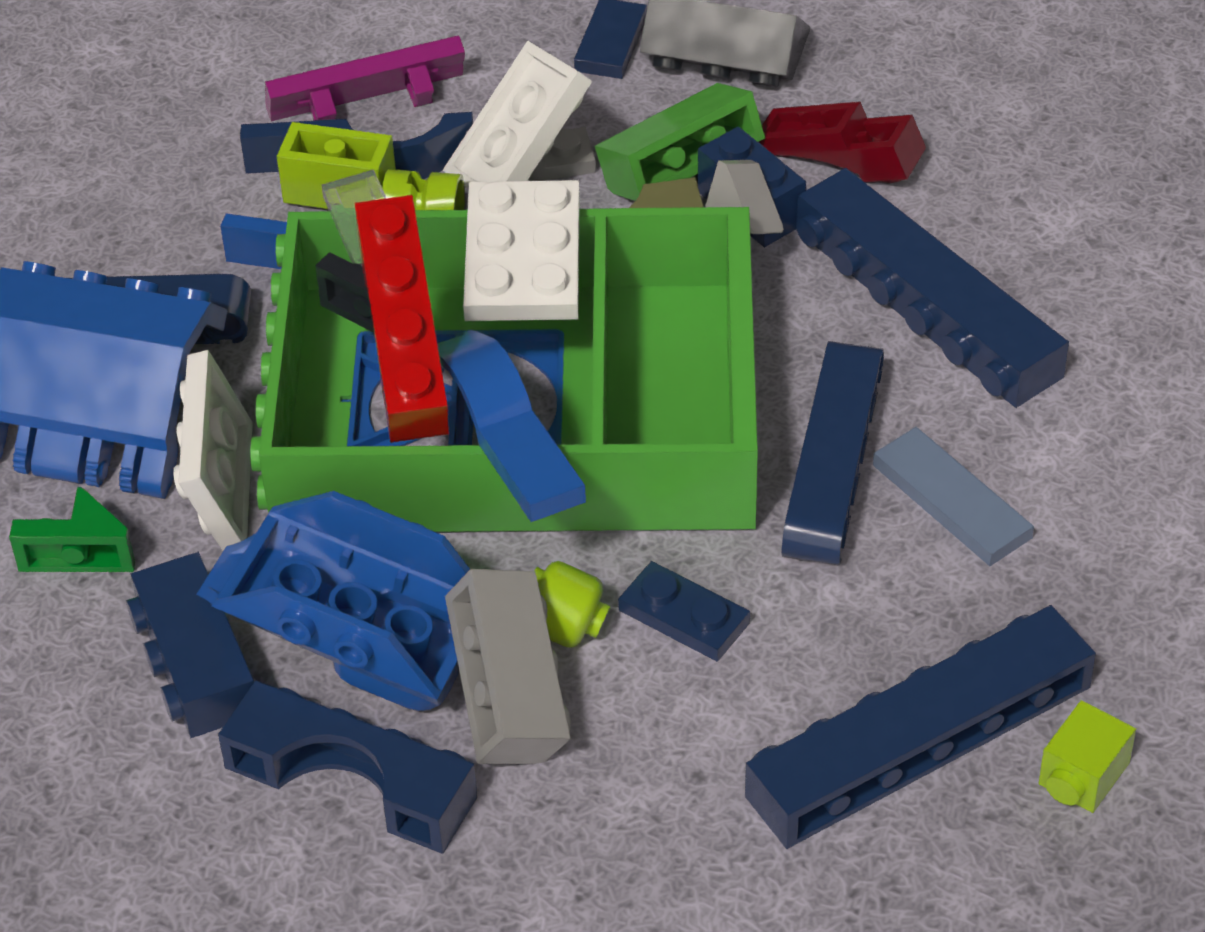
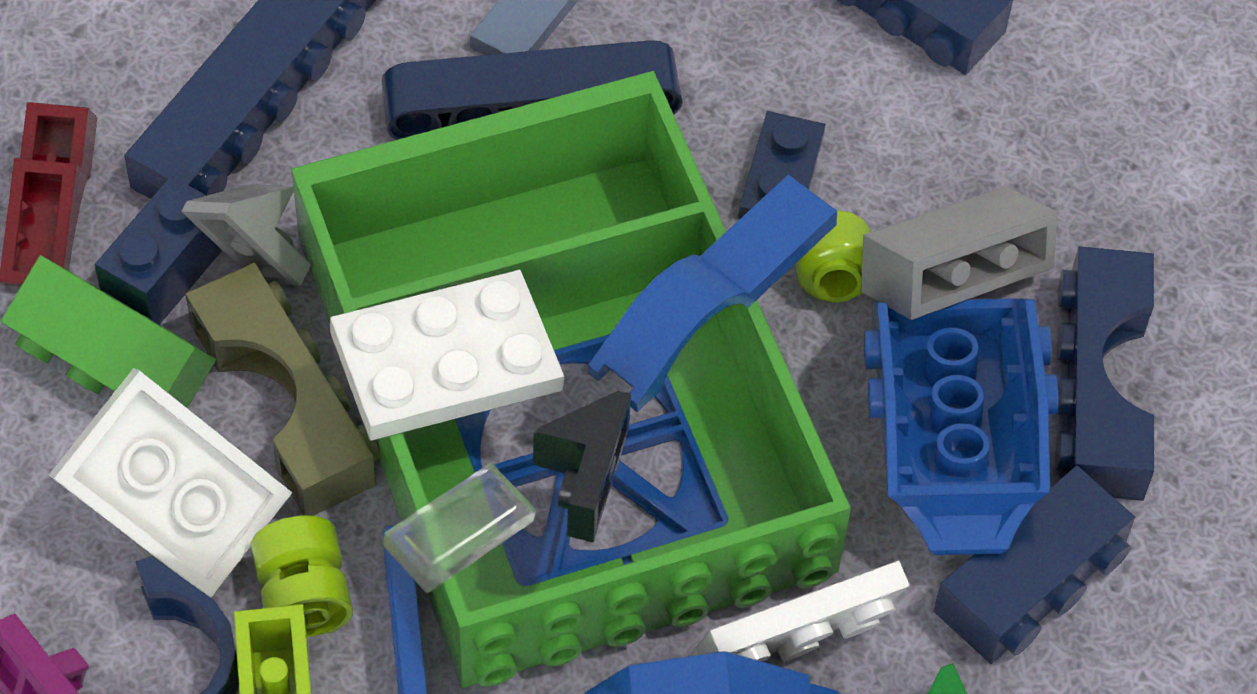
camera: 115 degrees left, 10 degrees up
(402, 319) = (597, 390): red arch -> none

